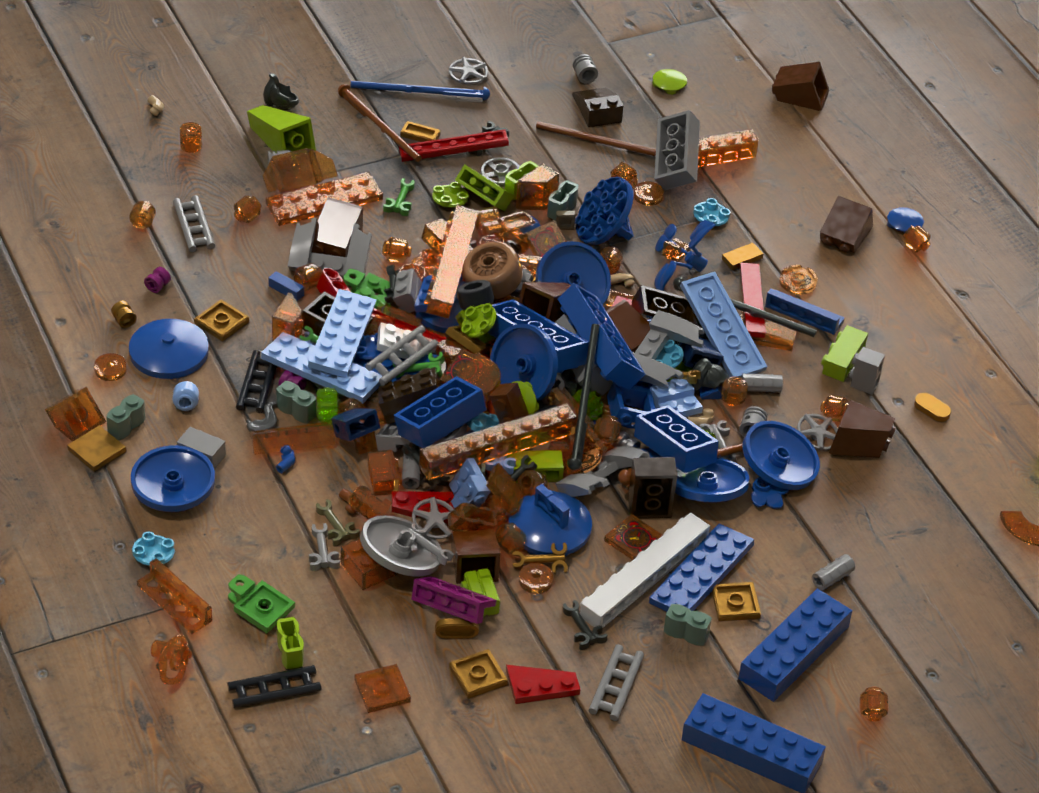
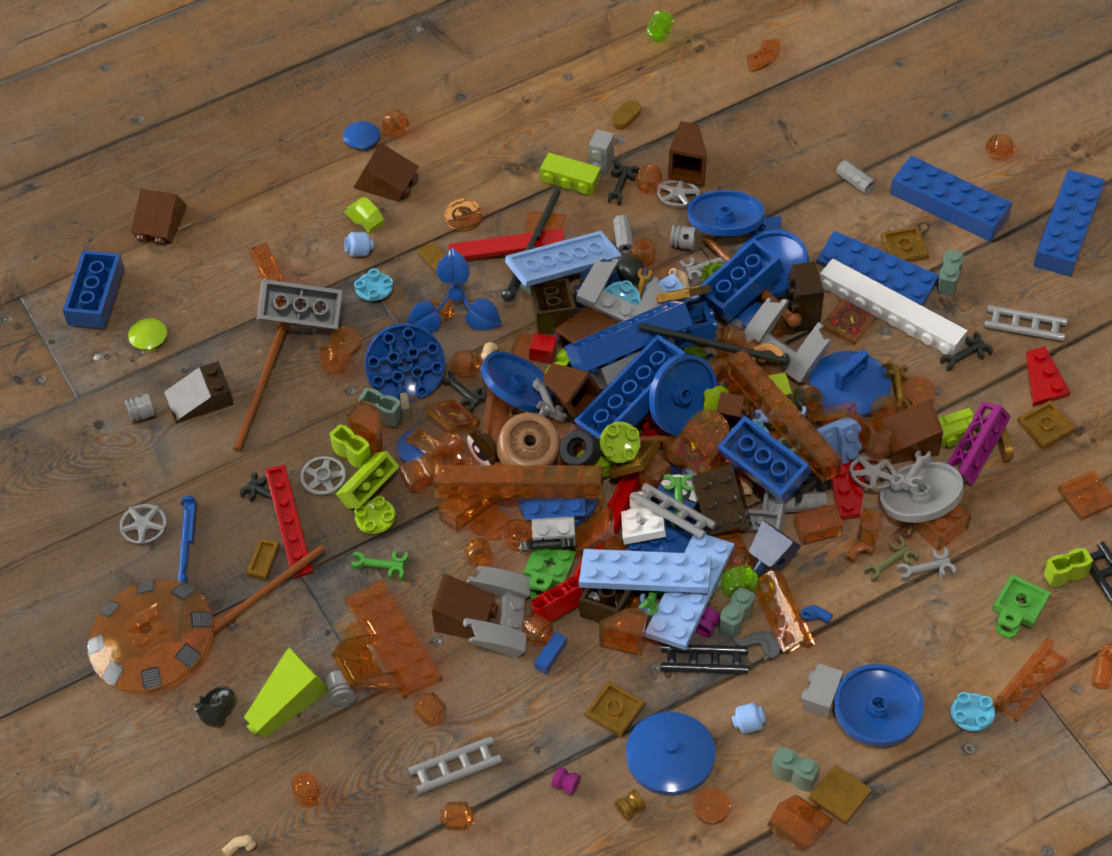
camera: 90 degrees left, 10 degrees up
(355, 67) = (166, 654): none -> clear orange dish
(655, 386) = (683, 293): none -> pearl gold tile
(717, 46) = (93, 289): none -> blue brick
(760, 204) = (358, 244): none -> light blue head
(799, 212) = (365, 214): none -> lime slope
(803, 311) = (515, 209): blue fence -> none
(816, 387) = (622, 173): none -> pearl dark grey bar

